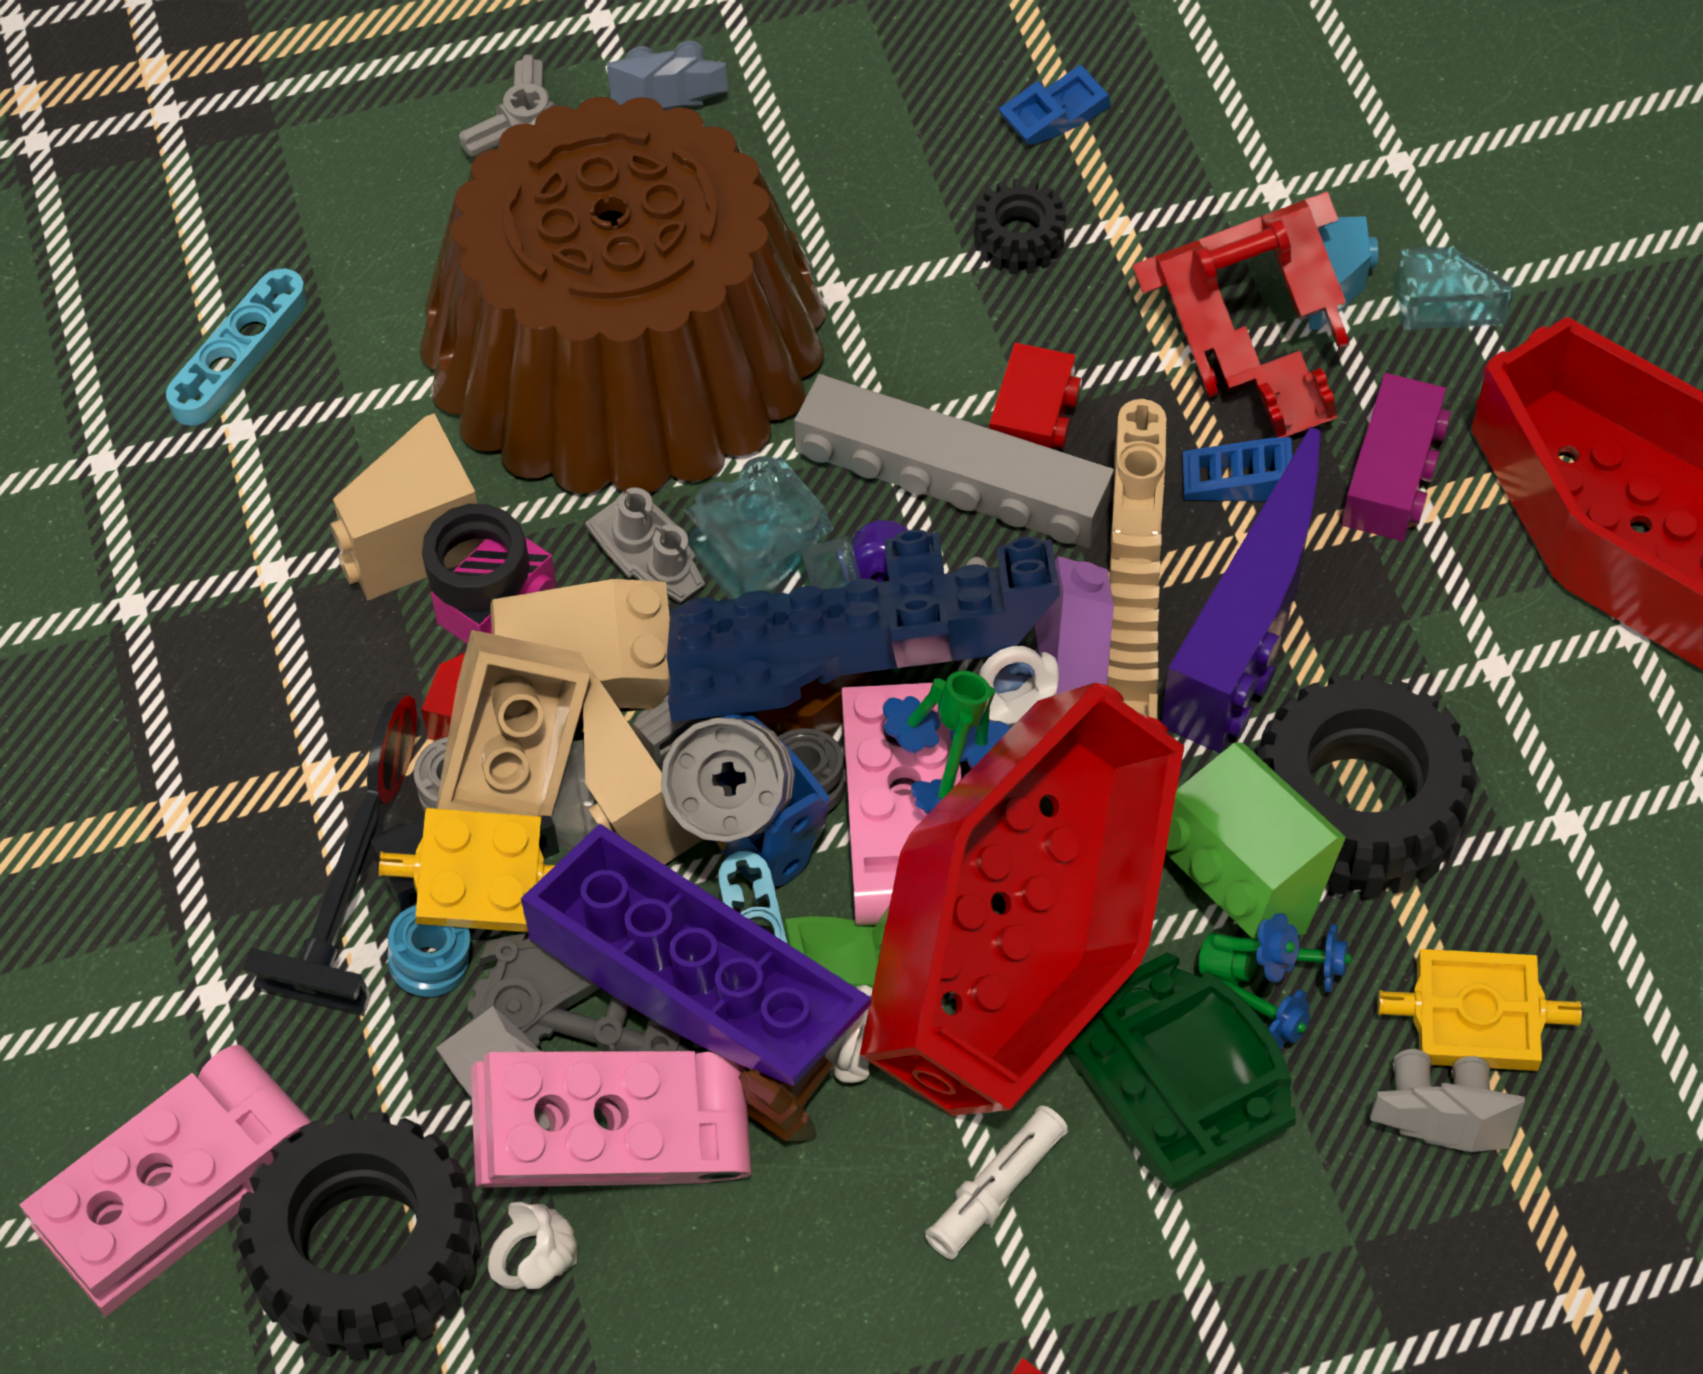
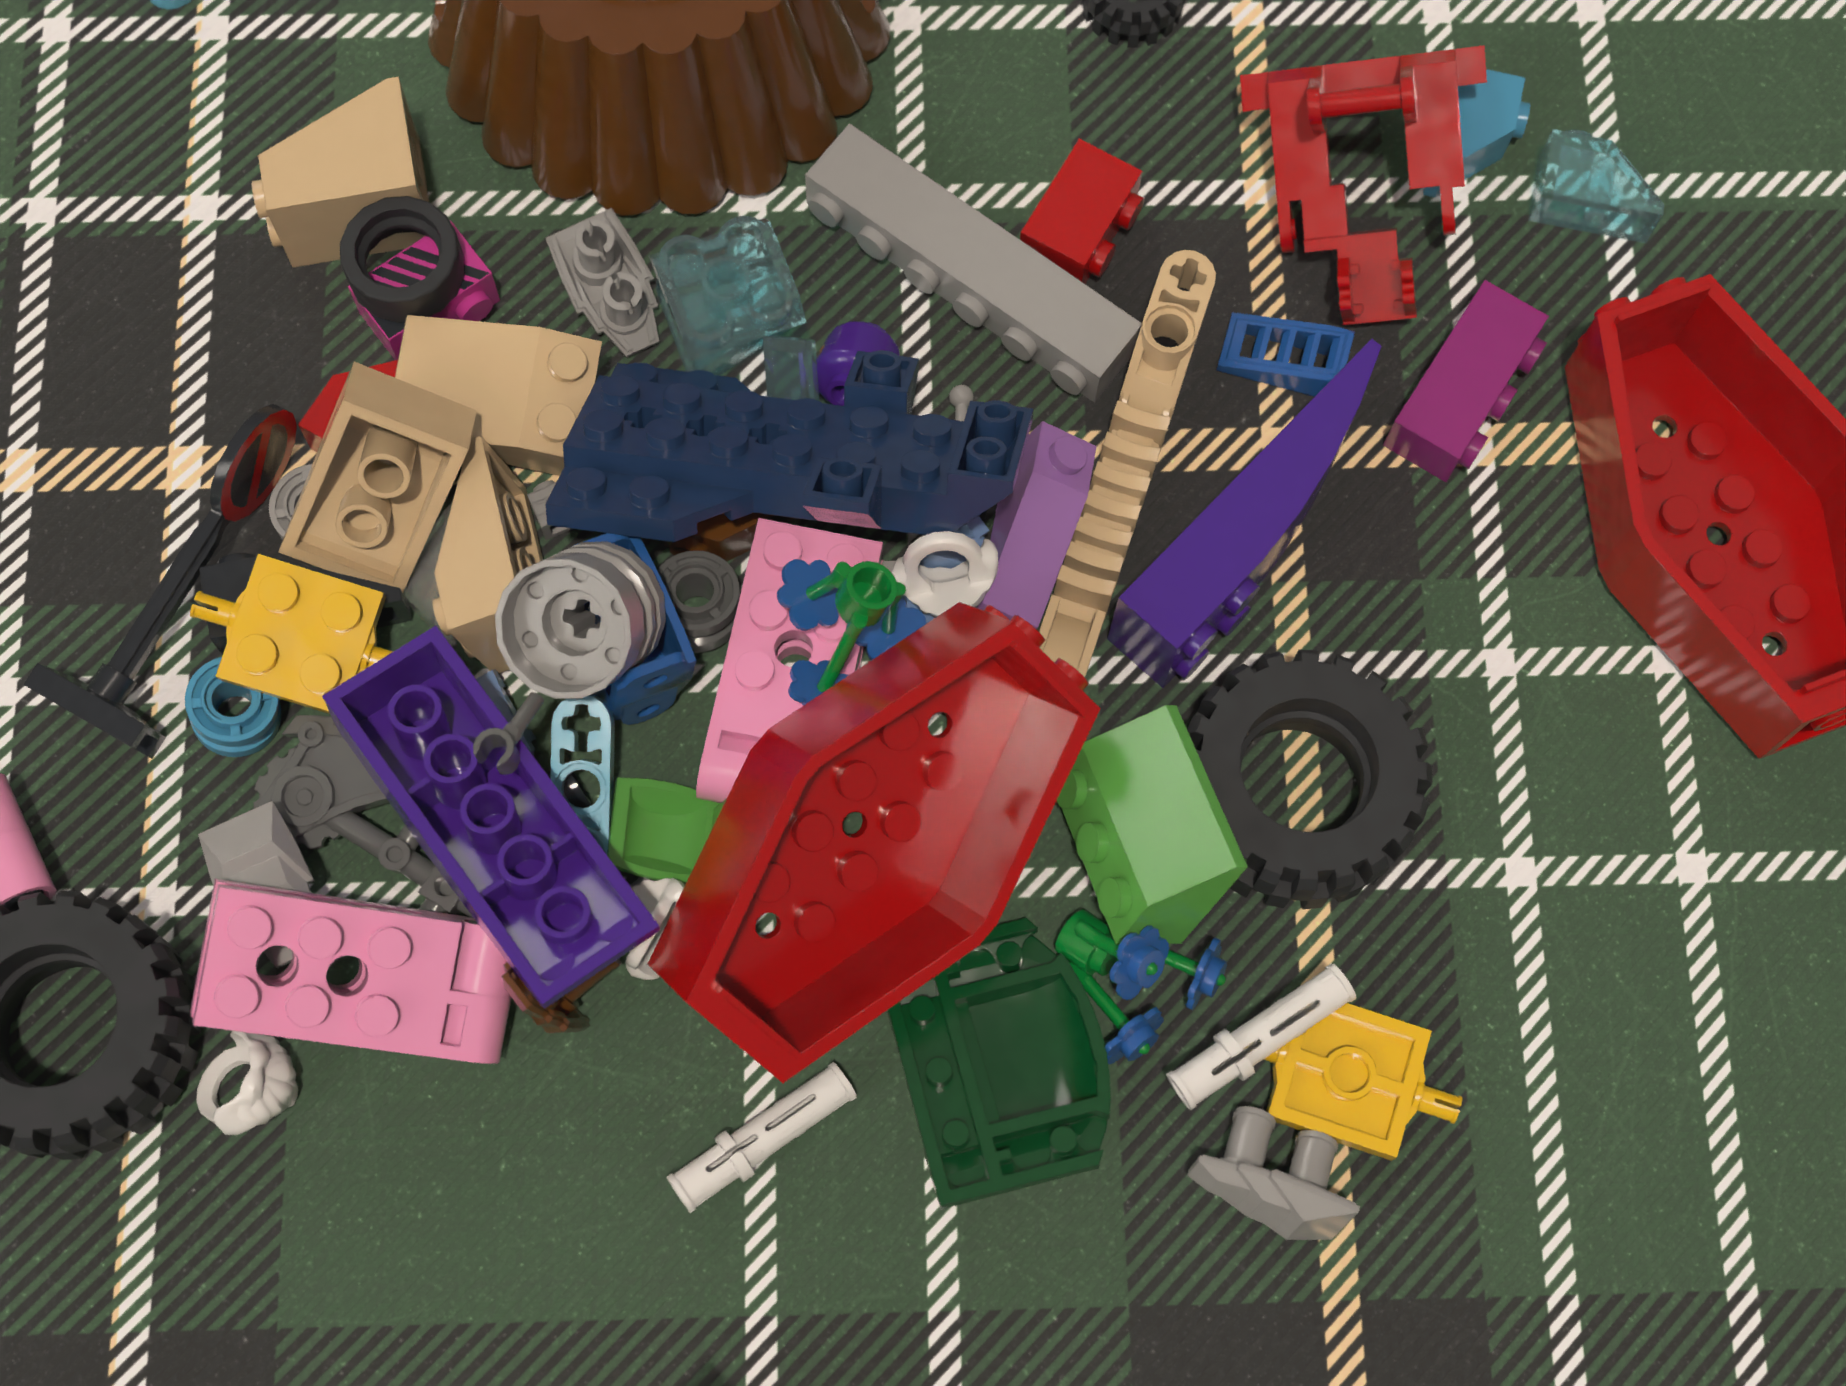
camera: 10 degrees right, 15 degrees up
(693, 886) = (508, 736): none -> dark grey hand
(1354, 1035) = (1261, 1036): none -> white pin

